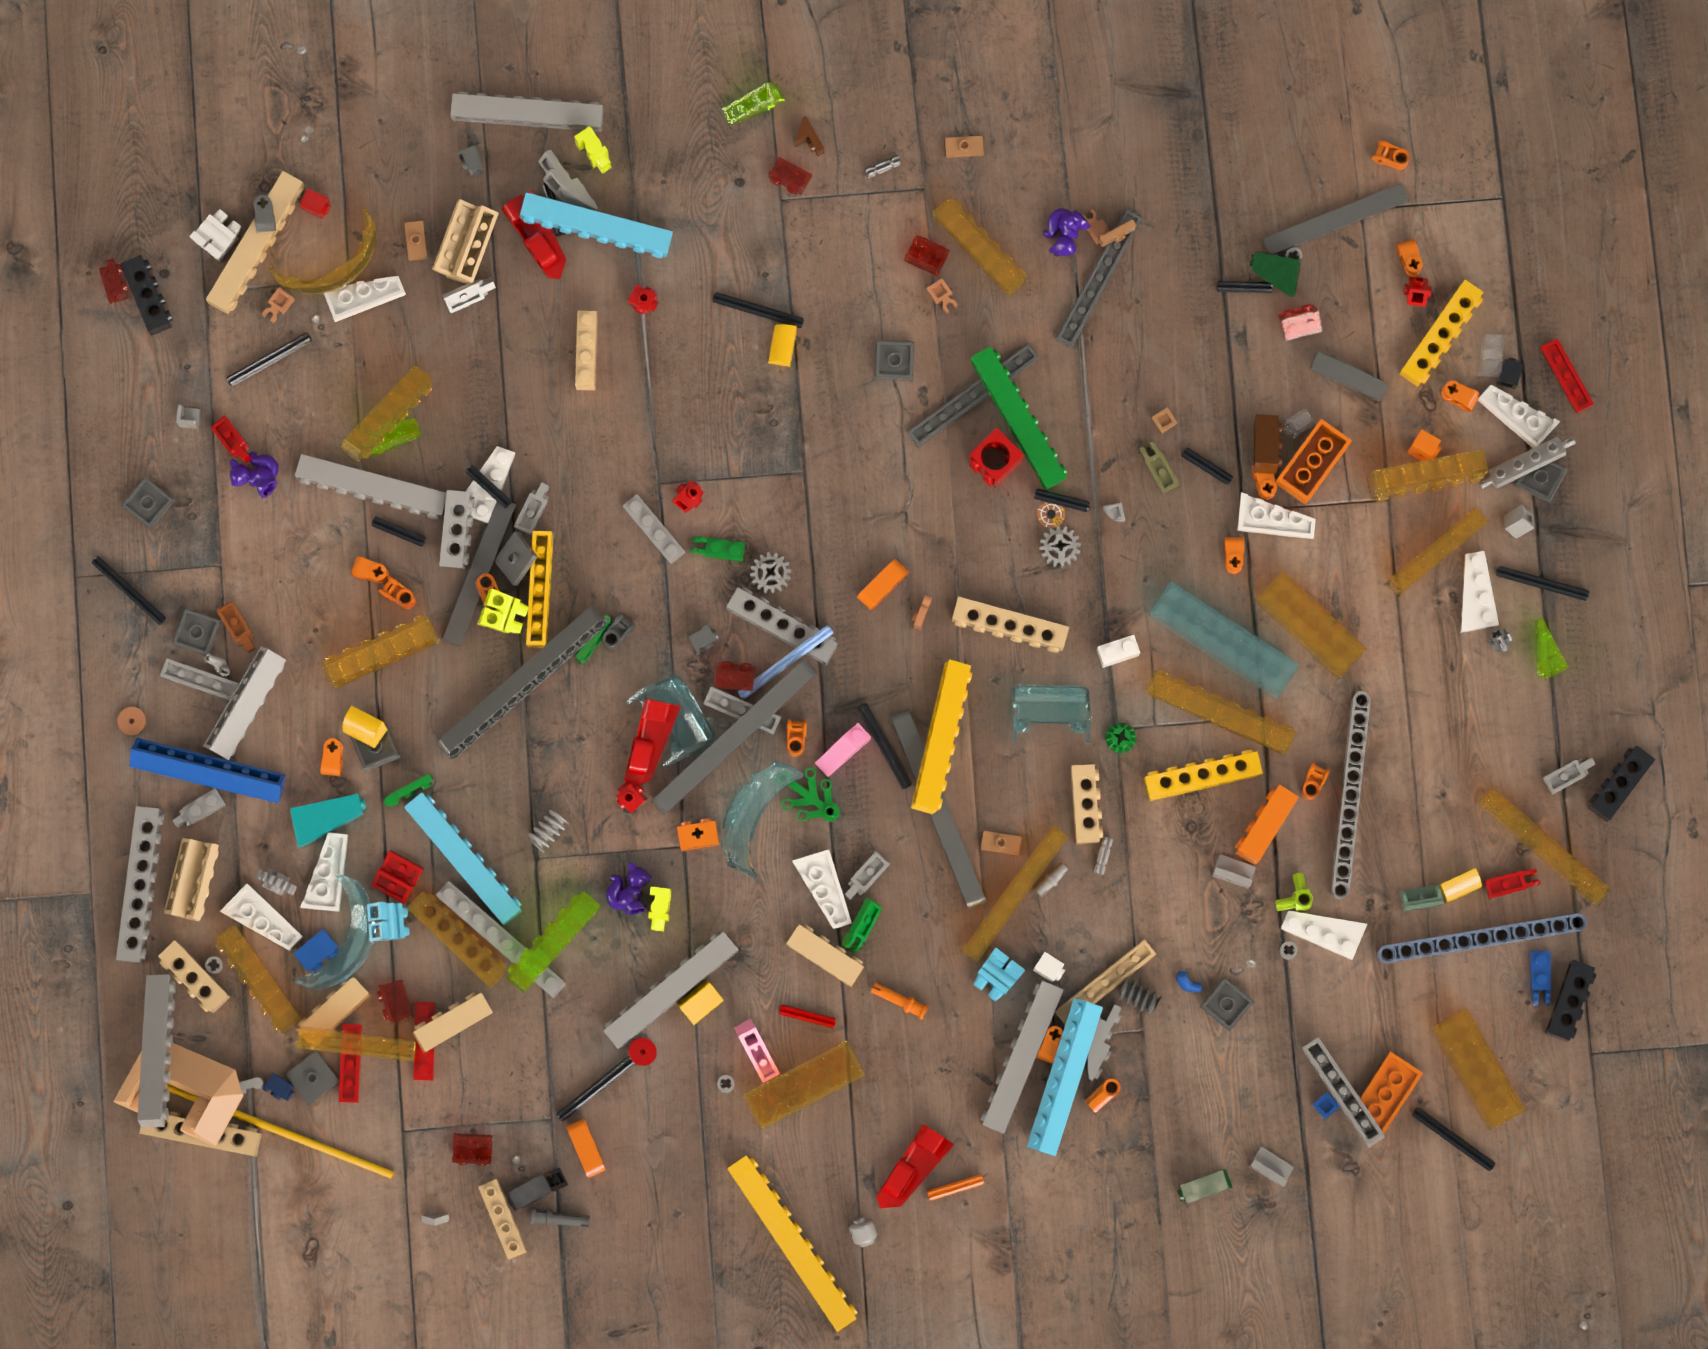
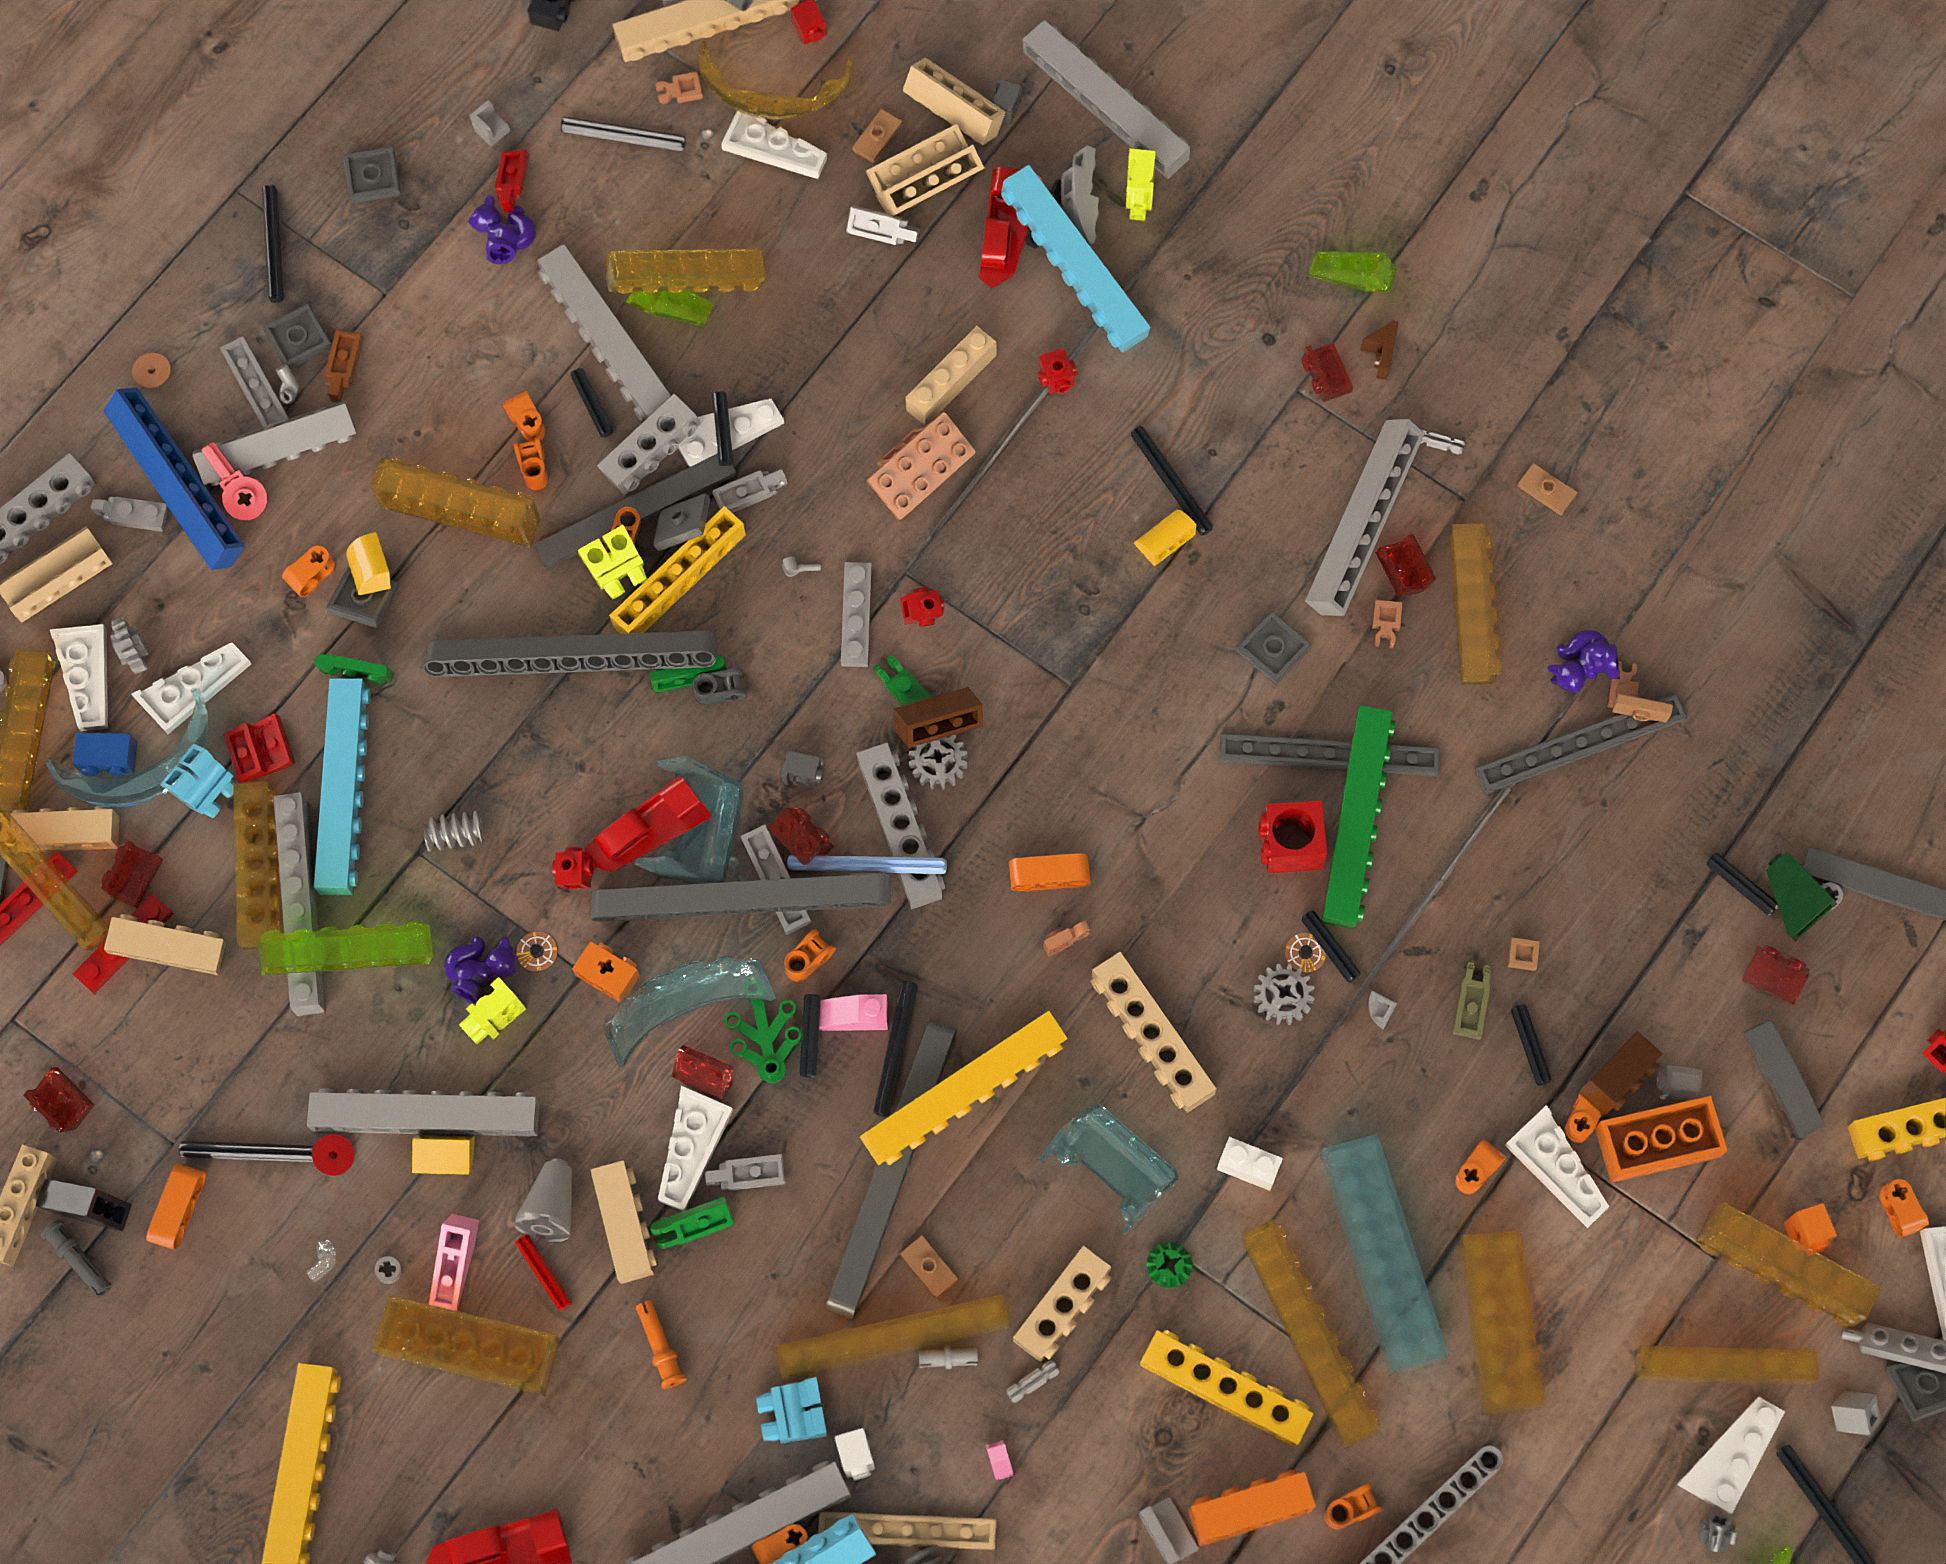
camera: 45 degrees right, 10 degrees down
(247, 745) = (235, 482): none -> coral piece
(324, 817) = (231, 618): teal slope -> none
(443, 185) = (954, 101): none -> tan brick
(594, 532) = (791, 568): none -> light grey hand
(613, 416) = (920, 465): none -> nougat bracket
(649, 856) = (536, 951): none -> nougat piece
(689, 1106) = (325, 1260): none -> clear arm
(752, 550) = (938, 717): none -> reddish brown brick
(779, 979) = (548, 1204): none -> light grey cone
(798, 844) = (702, 1072): none -> clear red bracket
(835, 777) = (809, 1037): none -> black axle
(882, 245) = (1364, 517): none -> light grey brick
(1120, 908) = (999, 1460): none -> bright pink piece

